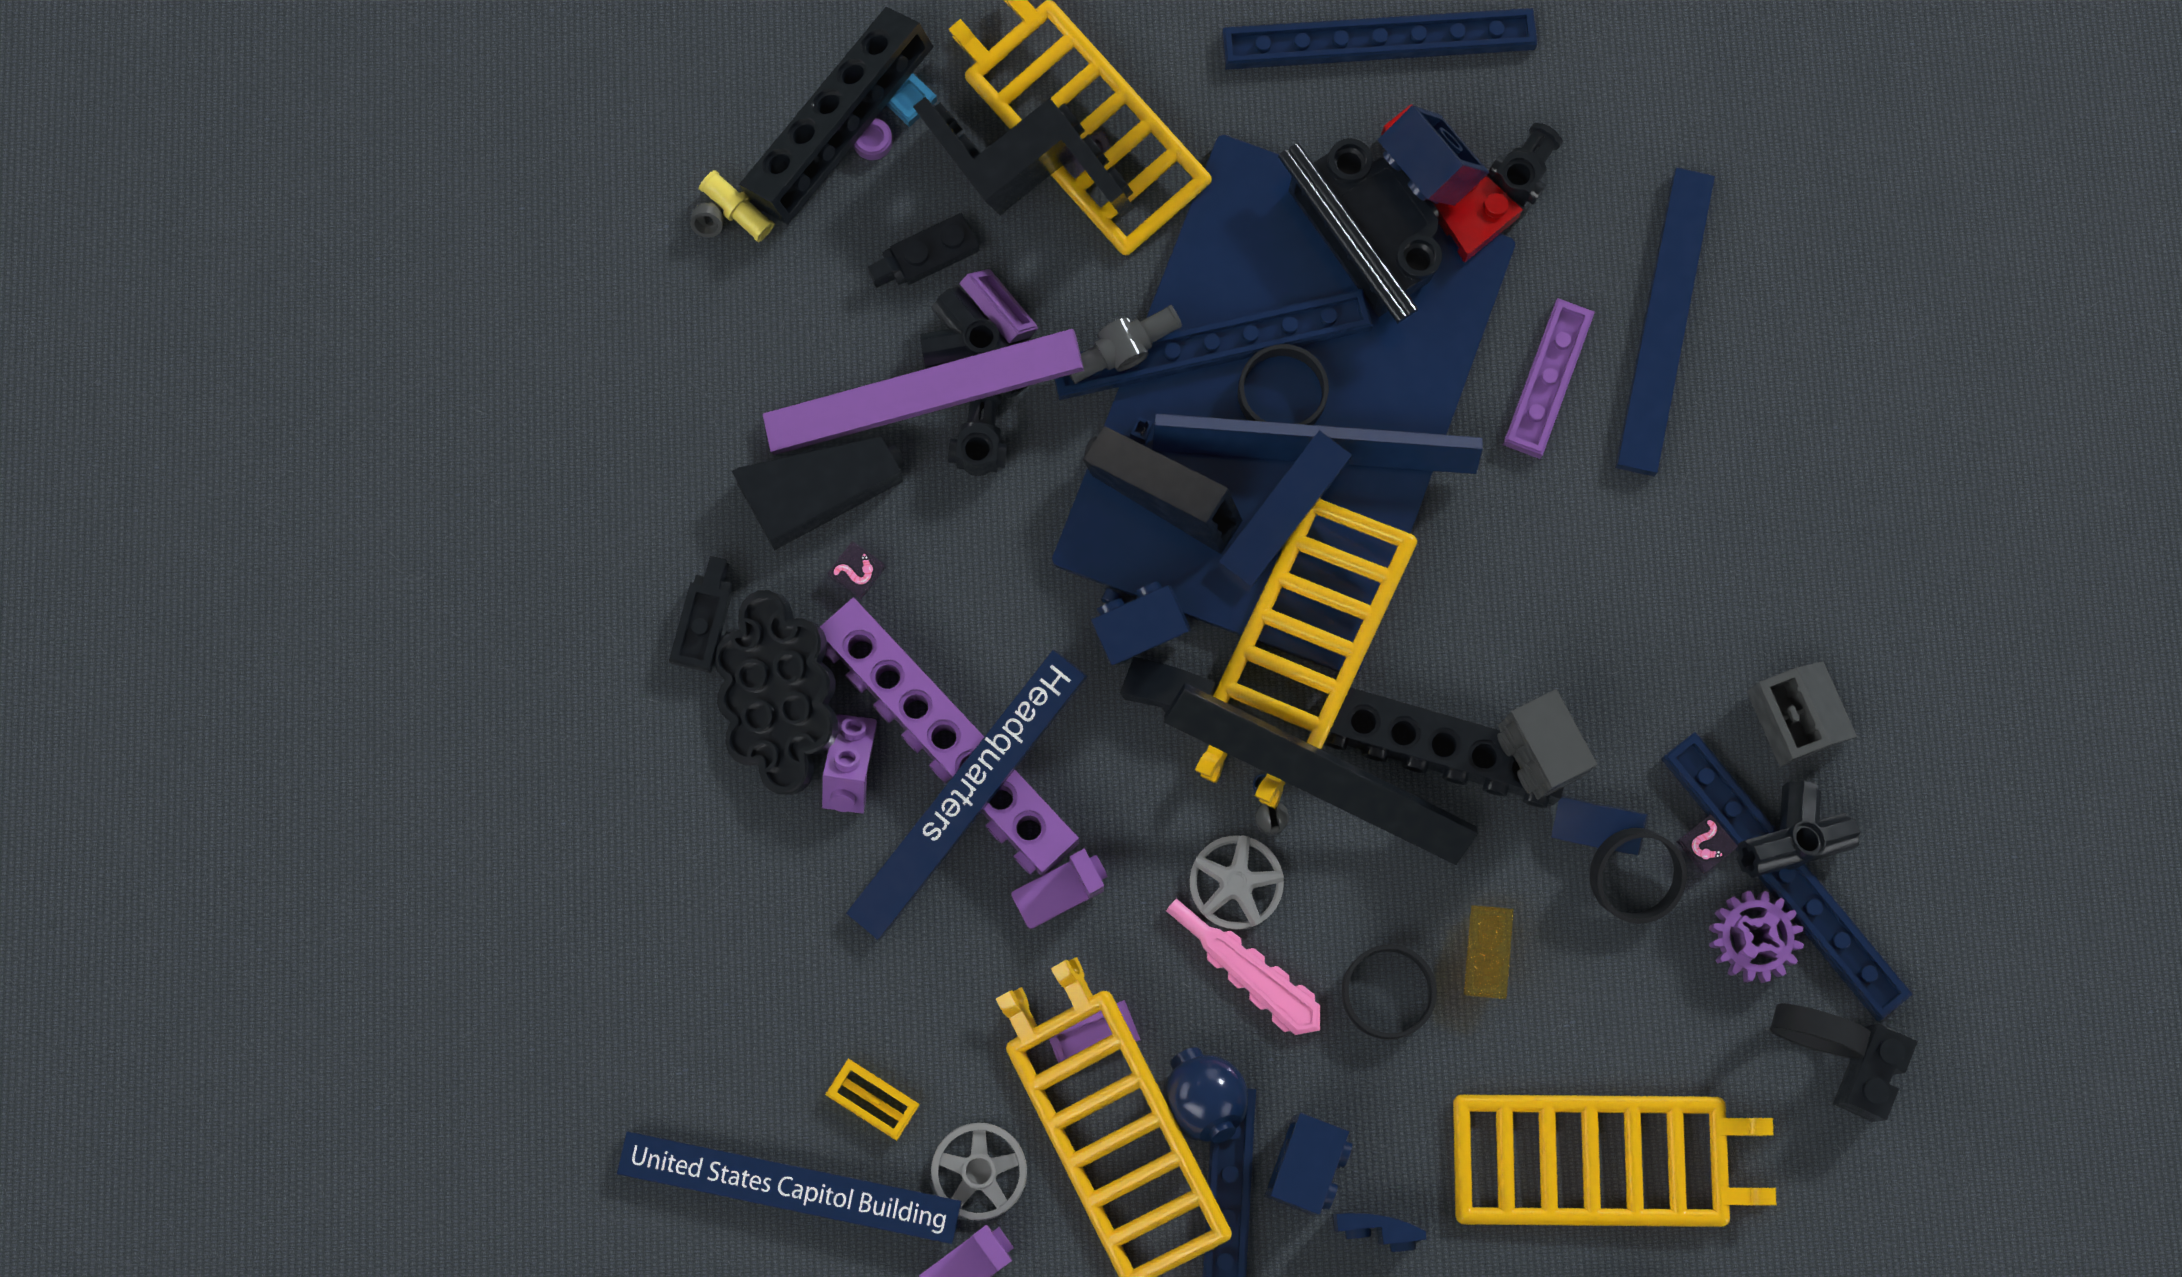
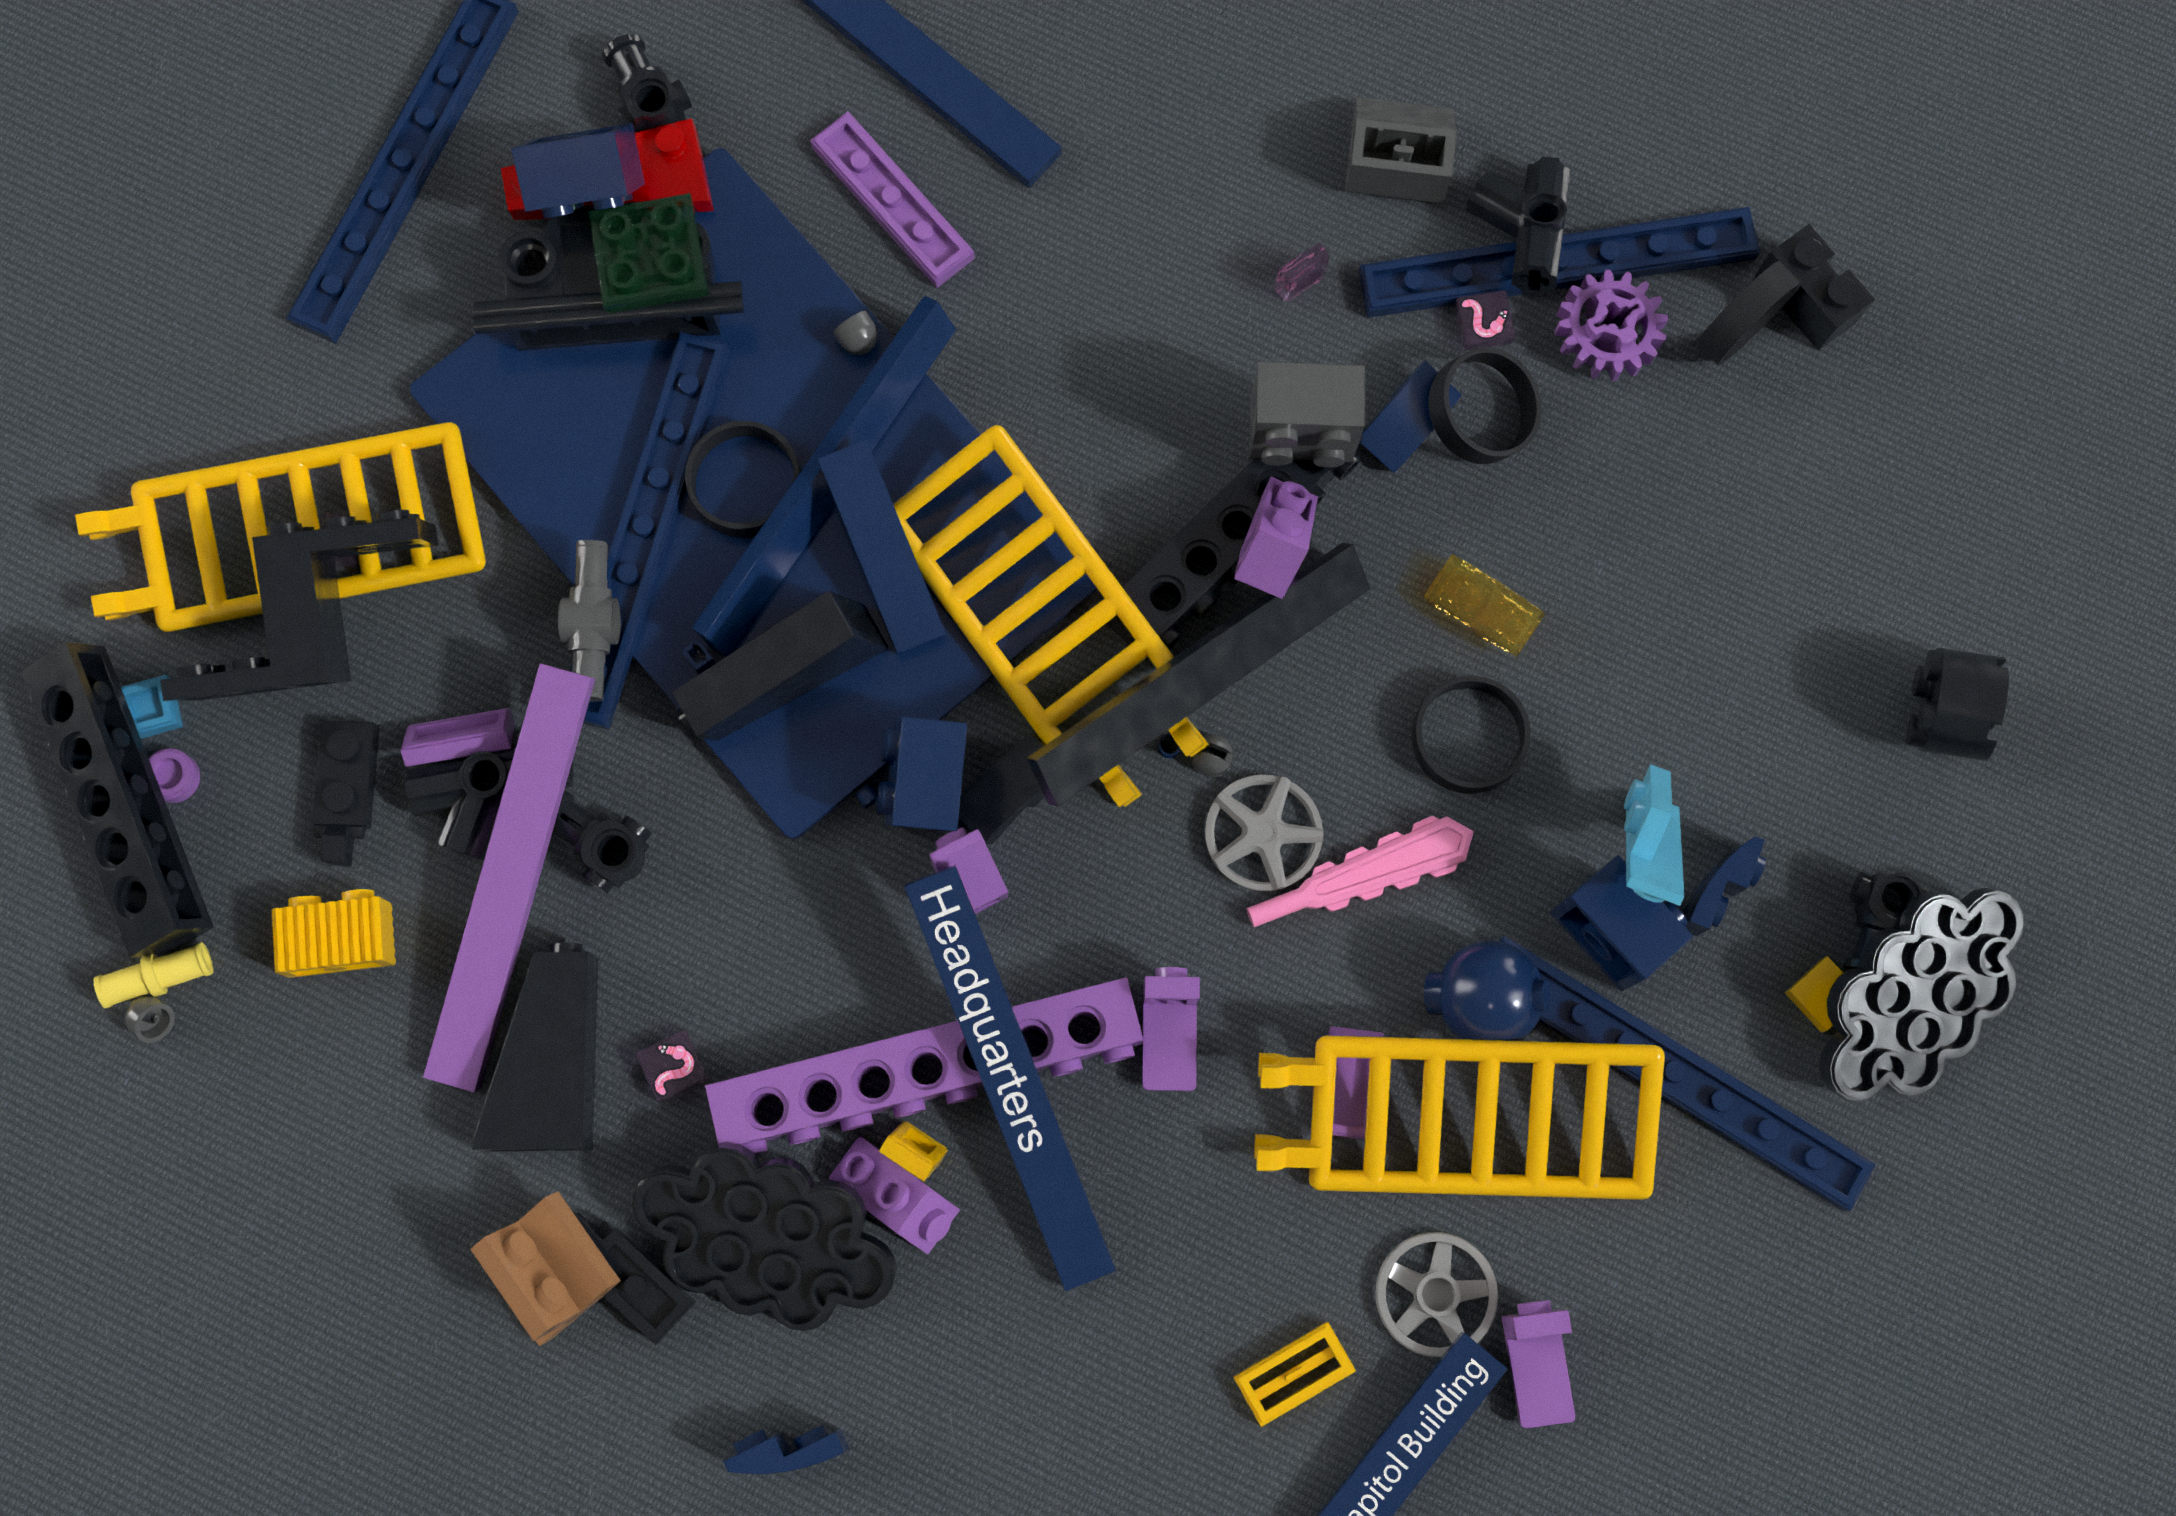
camera: 60 degrees left, 0 degrees up
(638, 777) = (766, 1456): none -> dark blue slope
(680, 561) = (546, 1268): none -> medium nougat bracket
(824, 303) = (333, 935): none -> yellow brick
(885, 759) = (913, 1150): none -> yellow tile
(1096, 693) = (974, 866): none -> medium lavender slope
(1385, 1151) = (1653, 839): none -> medium azure bracket
(1399, 236) = (648, 253): none -> clear green tile
(1431, 408) = (857, 334): none -> dark grey hinge
(1447, 774) = (1277, 537): none -> medium lavender slope
(1592, 1213) = (1814, 653): yellow bar -> none
(1663, 692) = (1302, 272): none -> clear purple tile

